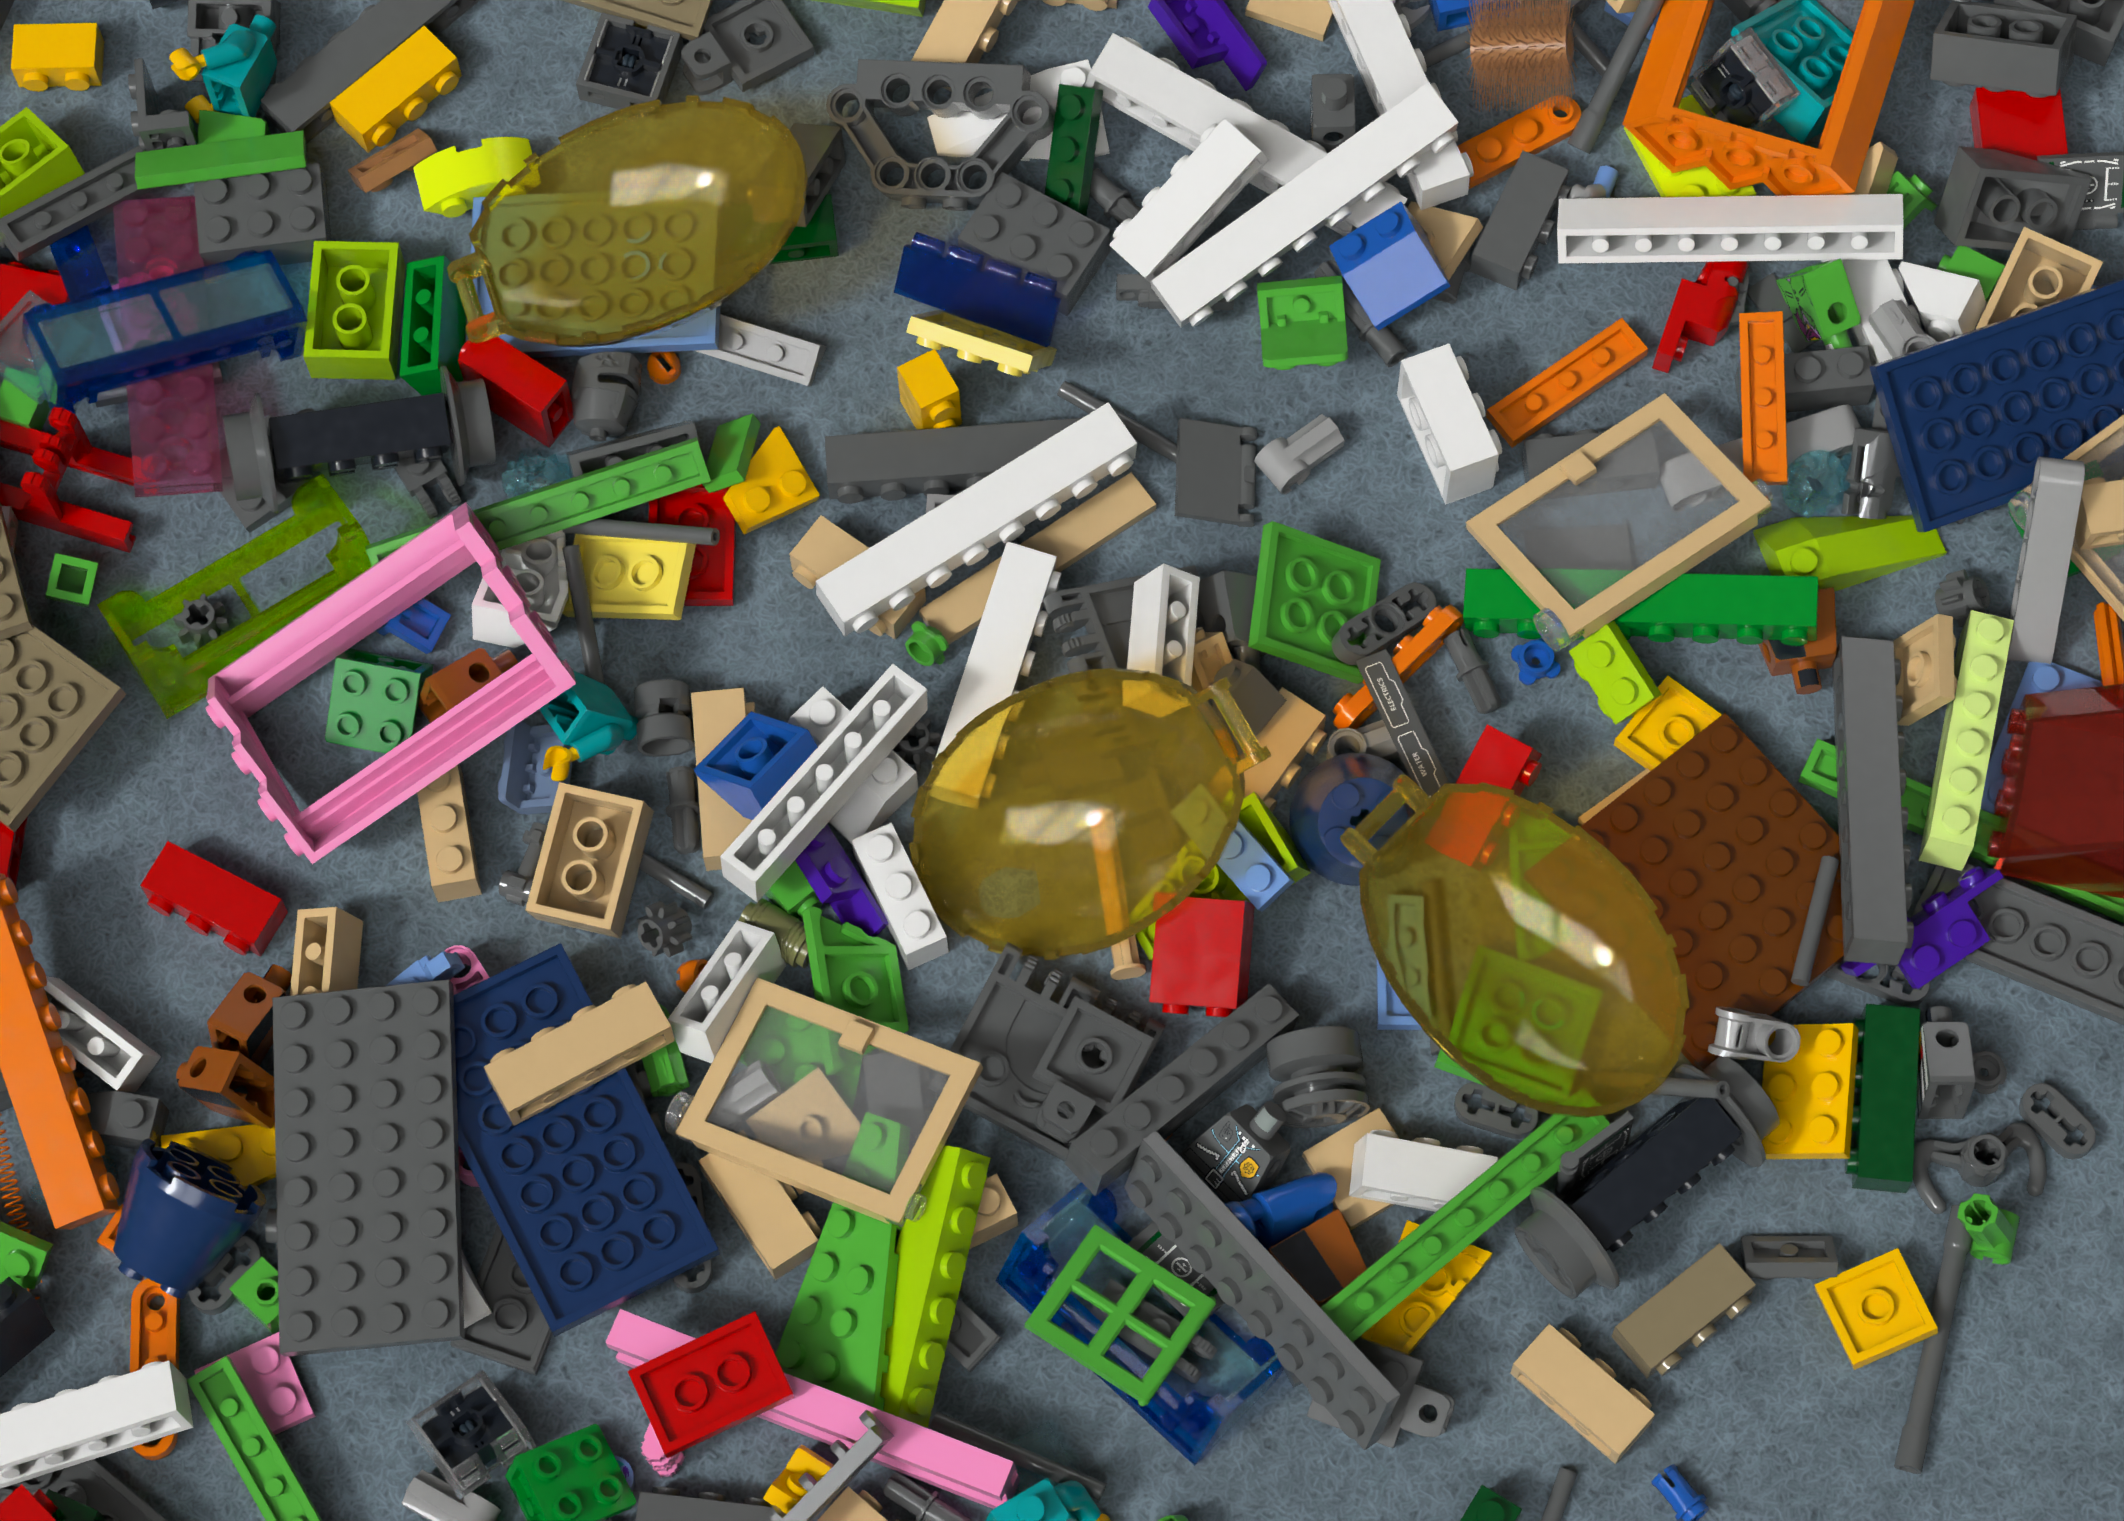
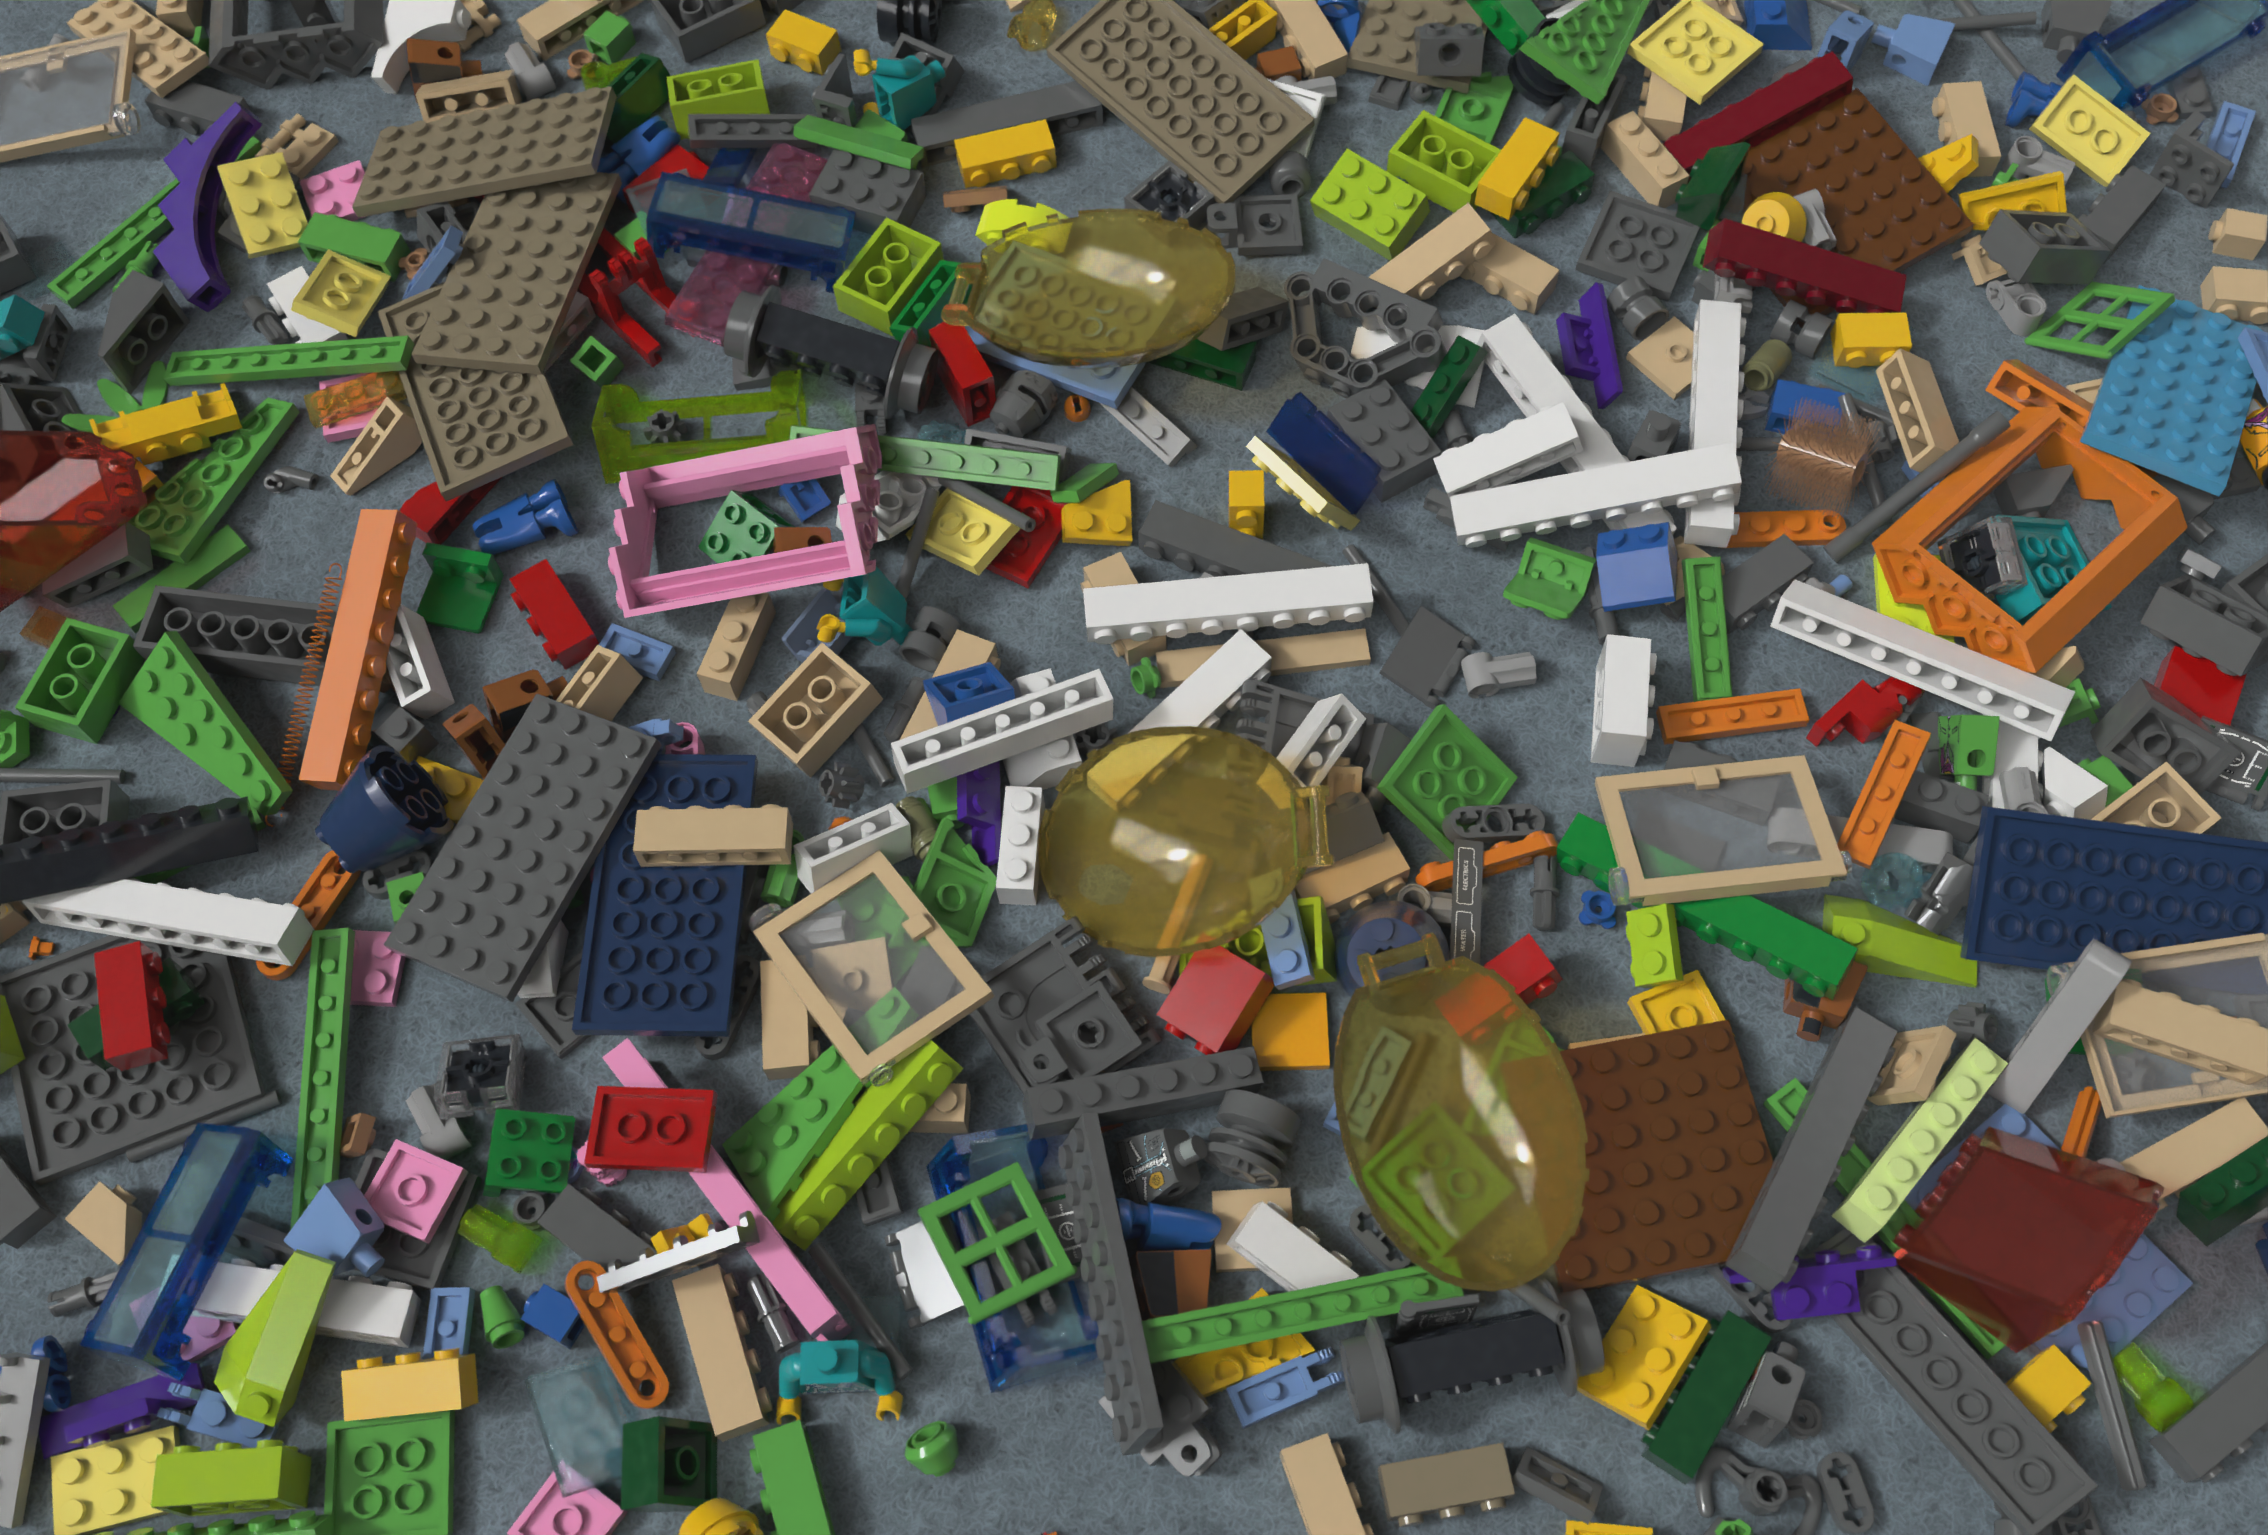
camera: 30 degrees right, 5 degrees down
(80, 925) = (459, 587): none -> green bracket
(100, 813) = (520, 523): none -> blue piece
(350, 890) = (644, 653): none -> medium blue plate
(1060, 1386) = (921, 1273): none -> piece
(1295, 948) = (1292, 1032): none -> light orange tile
(1477, 1308) = (1281, 1388): none -> medium blue hinge
(1495, 299) = (1706, 628): none -> bright green tile
(1746, 1036) = (1612, 1283): light grey piece -> none
(1815, 921) = (1717, 1220): dark grey bar -> none

